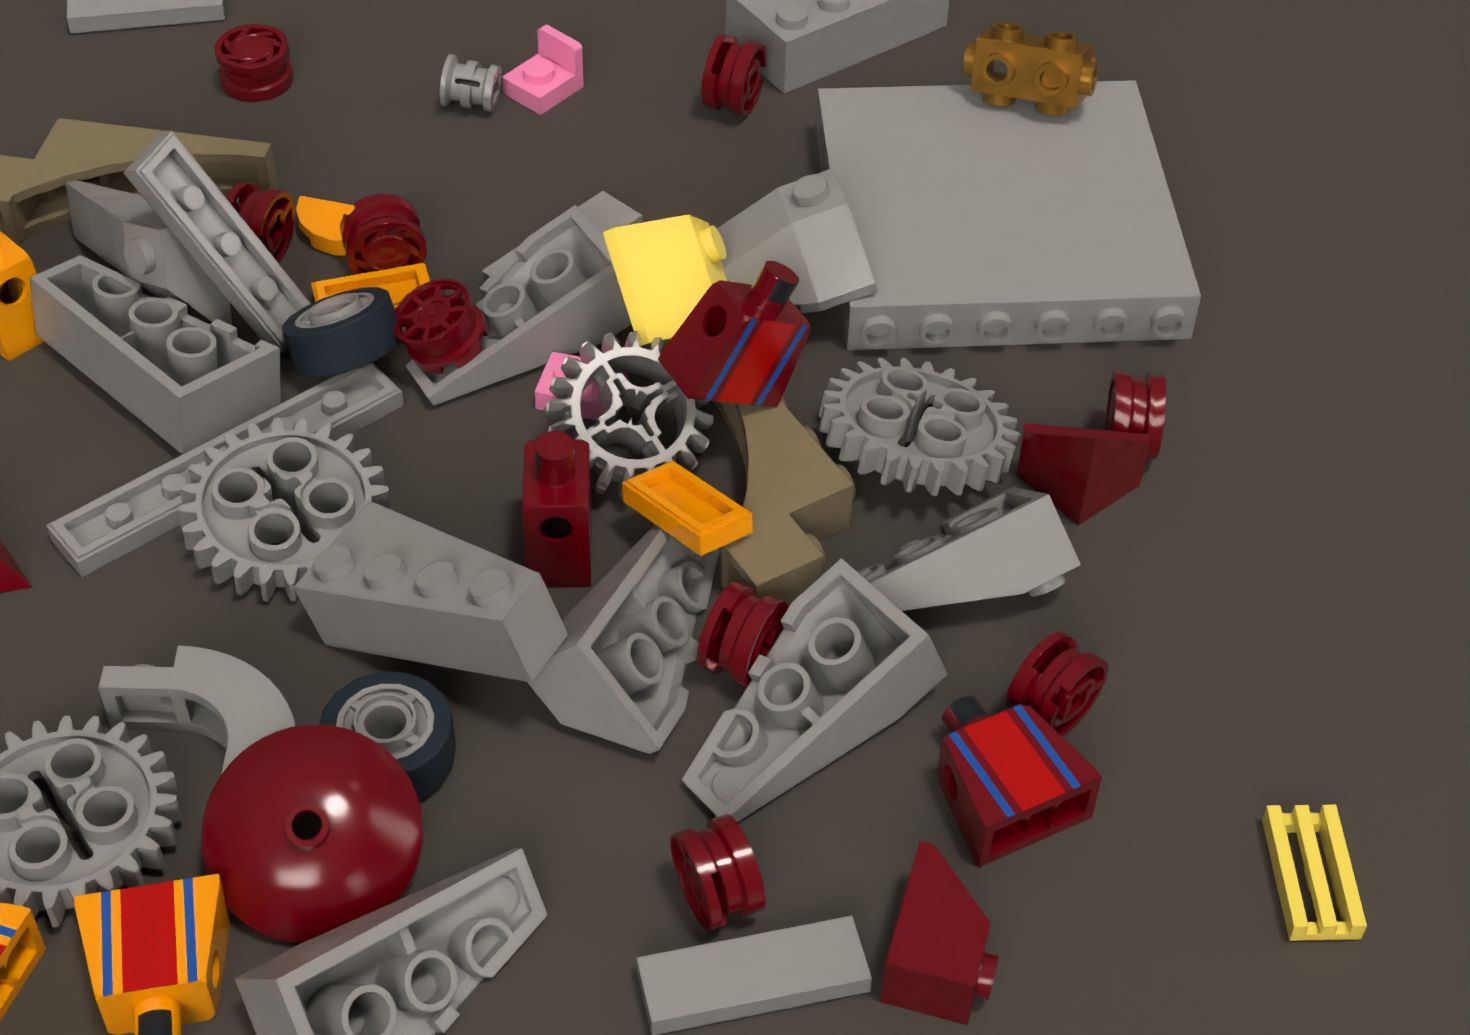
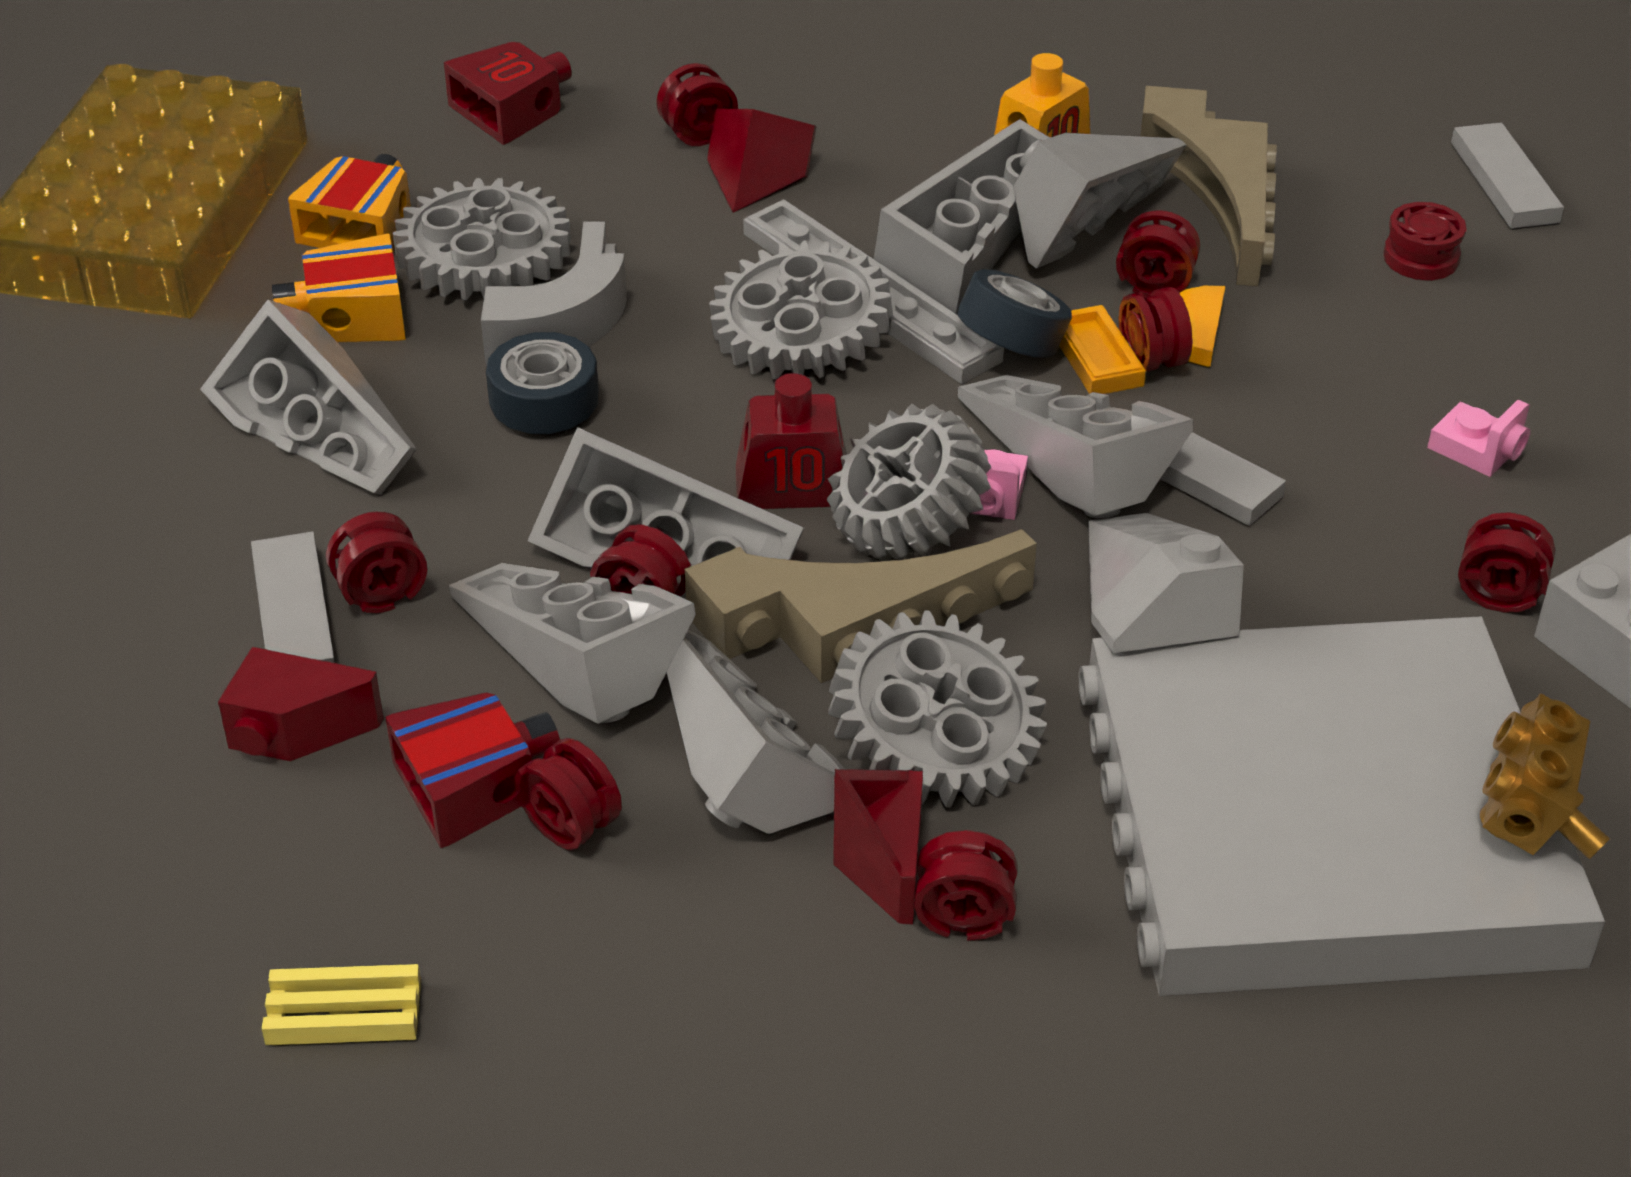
camera: 90 degrees right, 5 degrees down
(216, 236) = (1062, 188): light grey tile -> none
(349, 869) = (442, 343): dark red dish -> none
(429, 599) = (663, 367): light grey wedge -> none
(440, 326) = (1026, 365): dark red wheel -> none
(455, 73) = (1435, 376): light grey bush -> none
(664, 271) = (1072, 483): light yellow slope -> none
(687, 508) = (777, 517): light orange tile -> none
(740, 341) = (946, 503): dark red torso -> none

